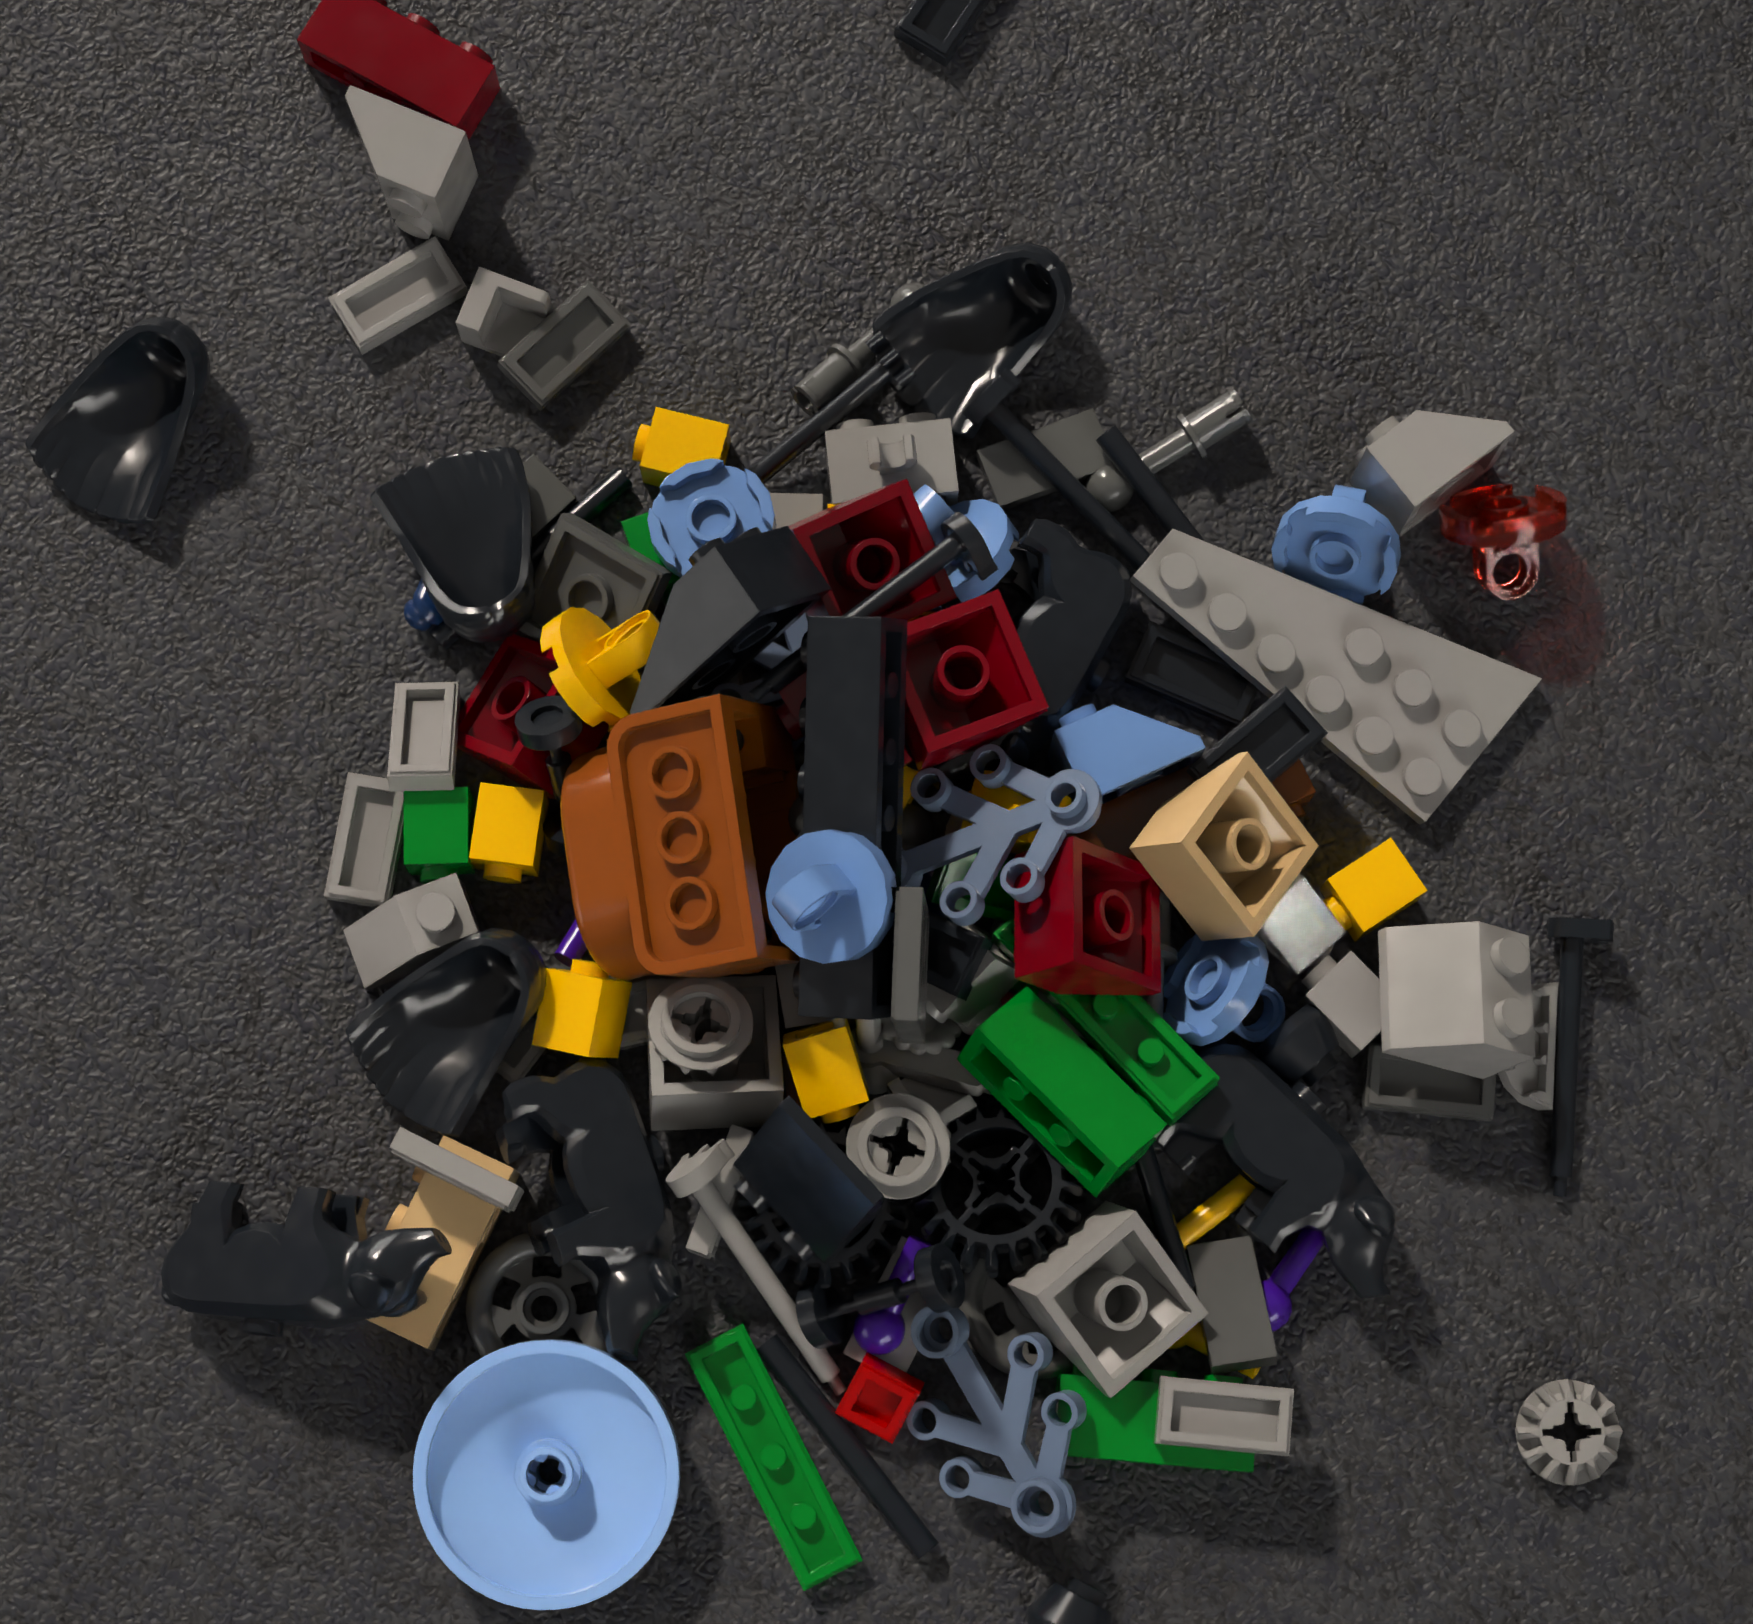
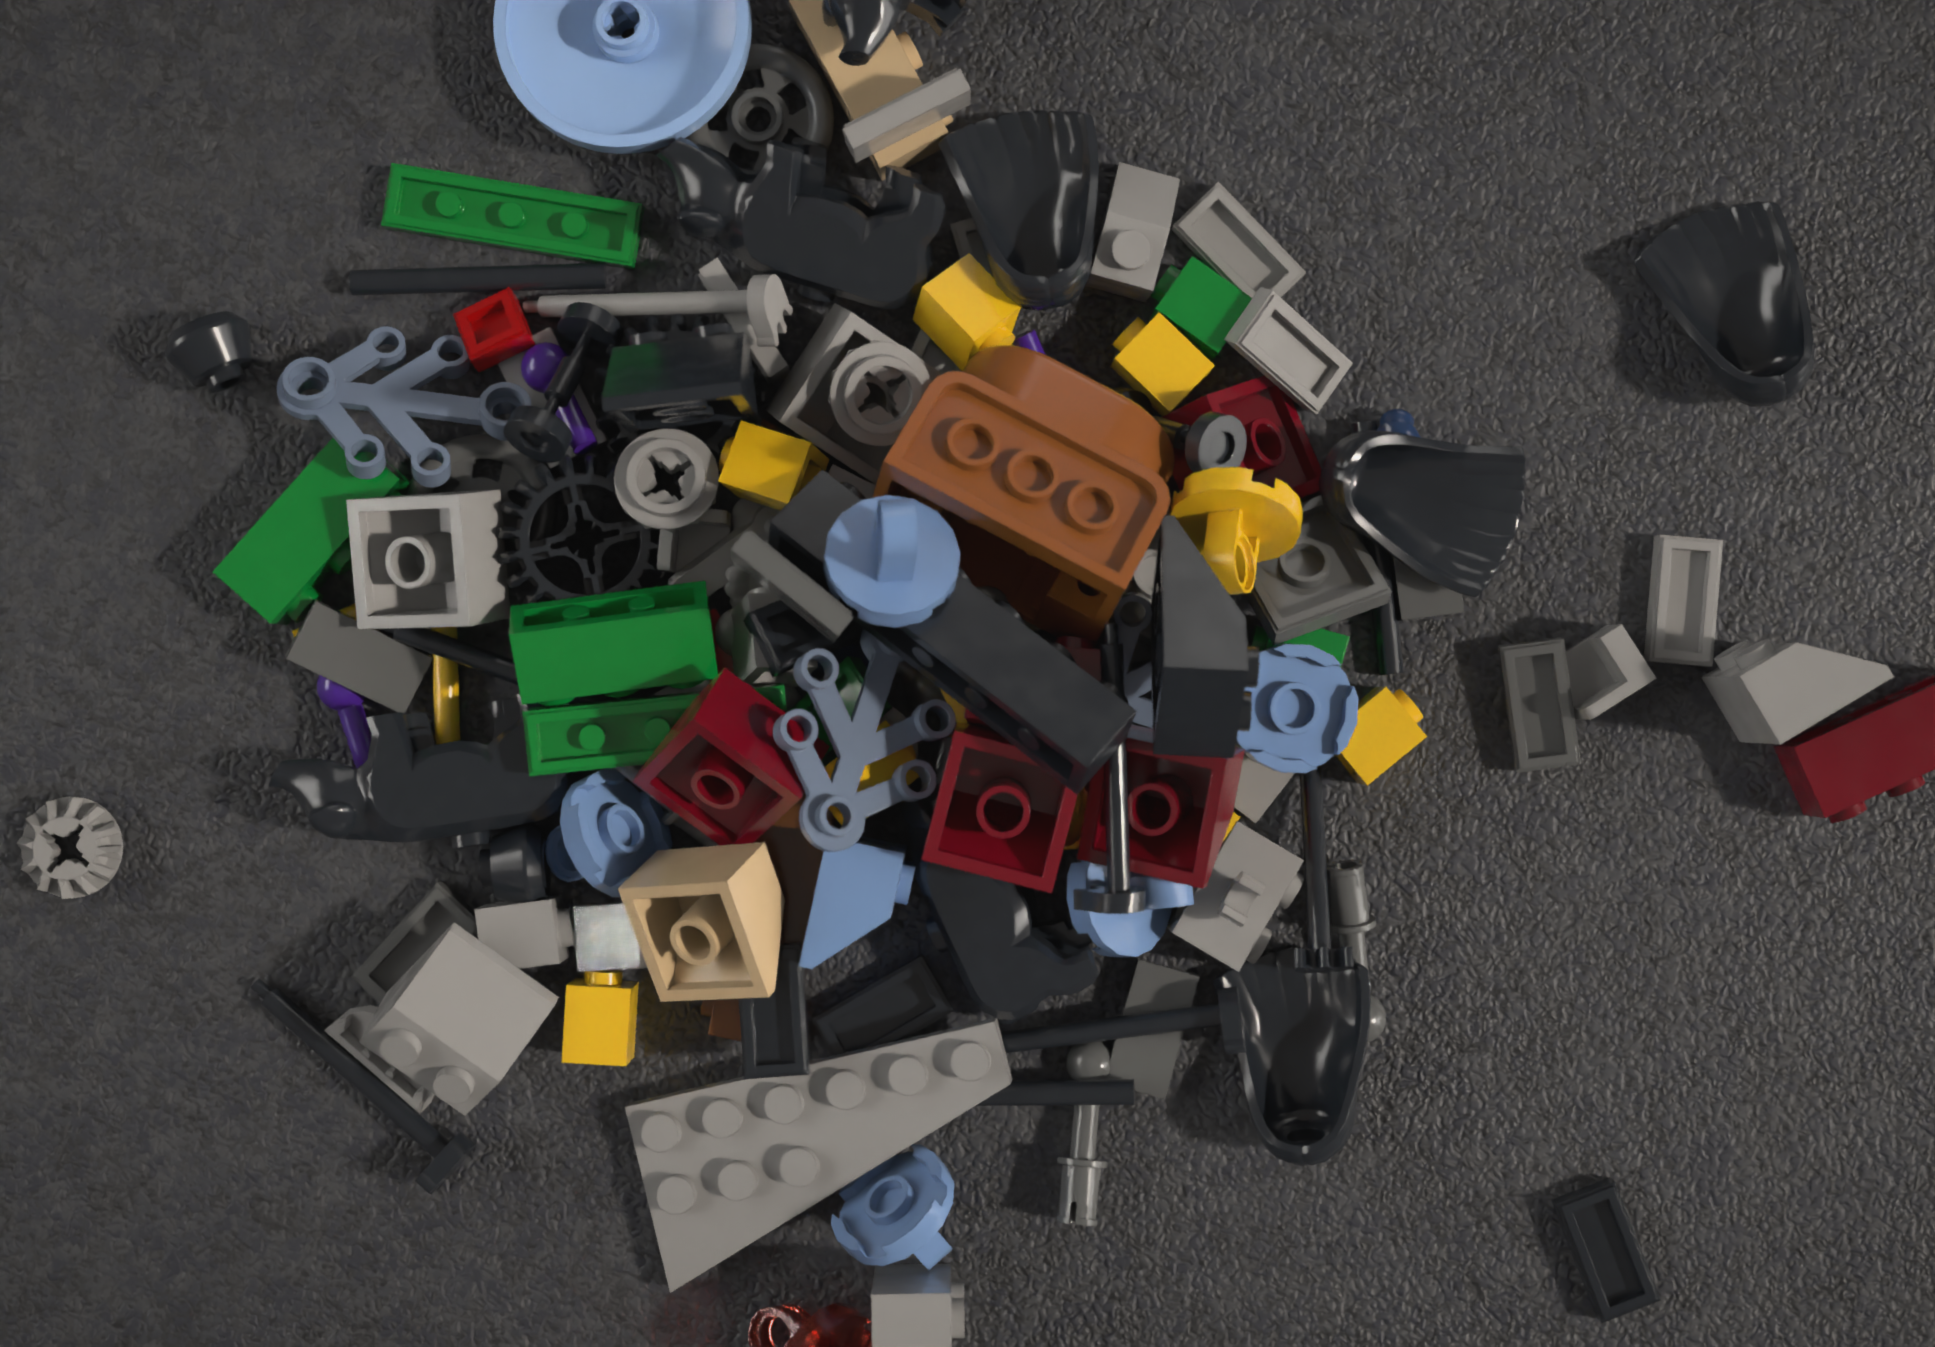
camera: 130 degrees right, 10 degrees up
(1224, 1416) = (268, 580): light grey tile -> none

